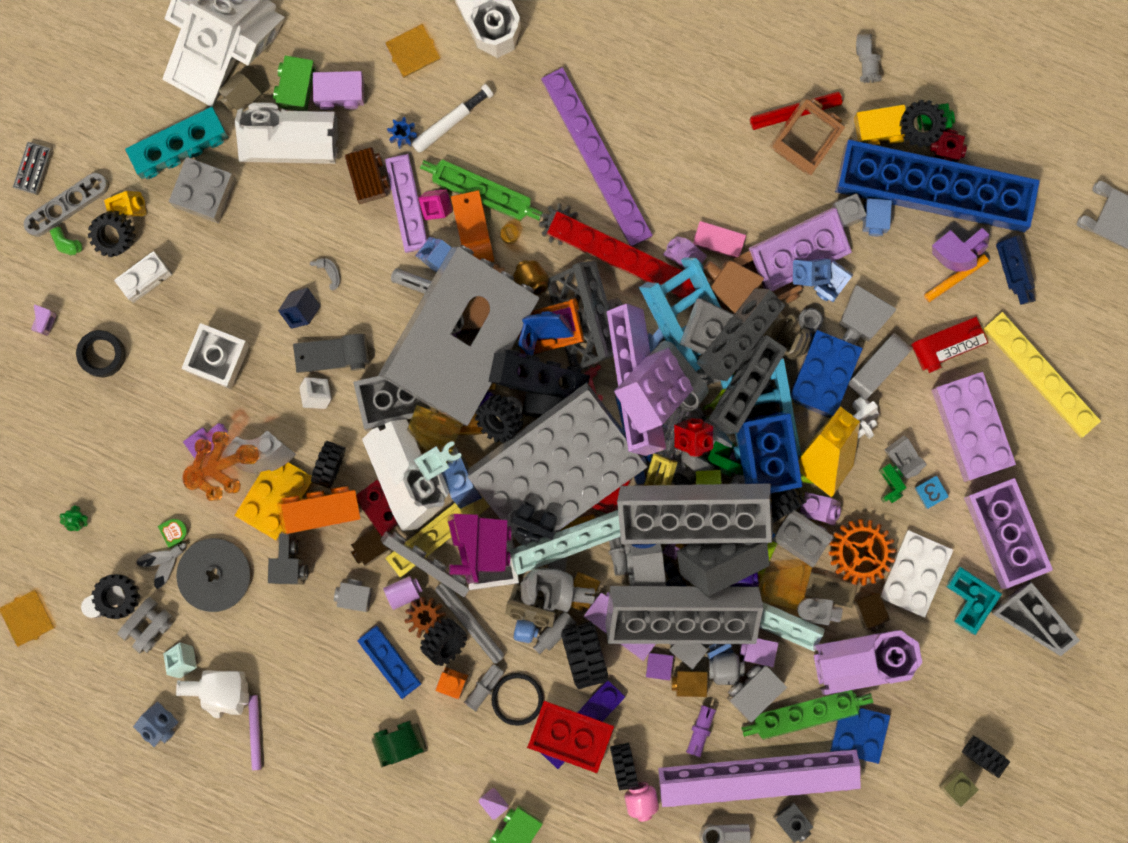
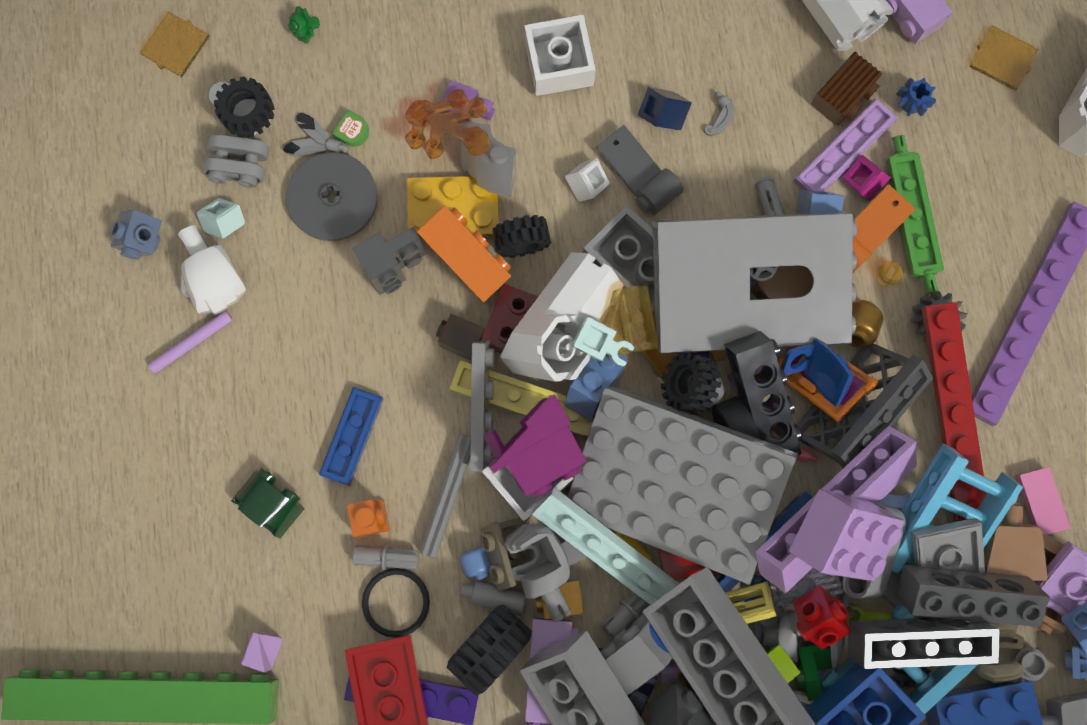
camera: 55 degrees right, 5 degrees down
(353, 596) = (398, 352): light grey brick -> none
(403, 592) = (435, 402): lavender brick -> none
(418, 621) = (413, 438): dark orange gear -> none
(433, 133) = (955, 135): white piece -> none
(443, 642) = (407, 479): black tyre -> none
(524, 519) = (599, 479): black hips -> none
(682, 247) = (1003, 461): lavender bracket -> none

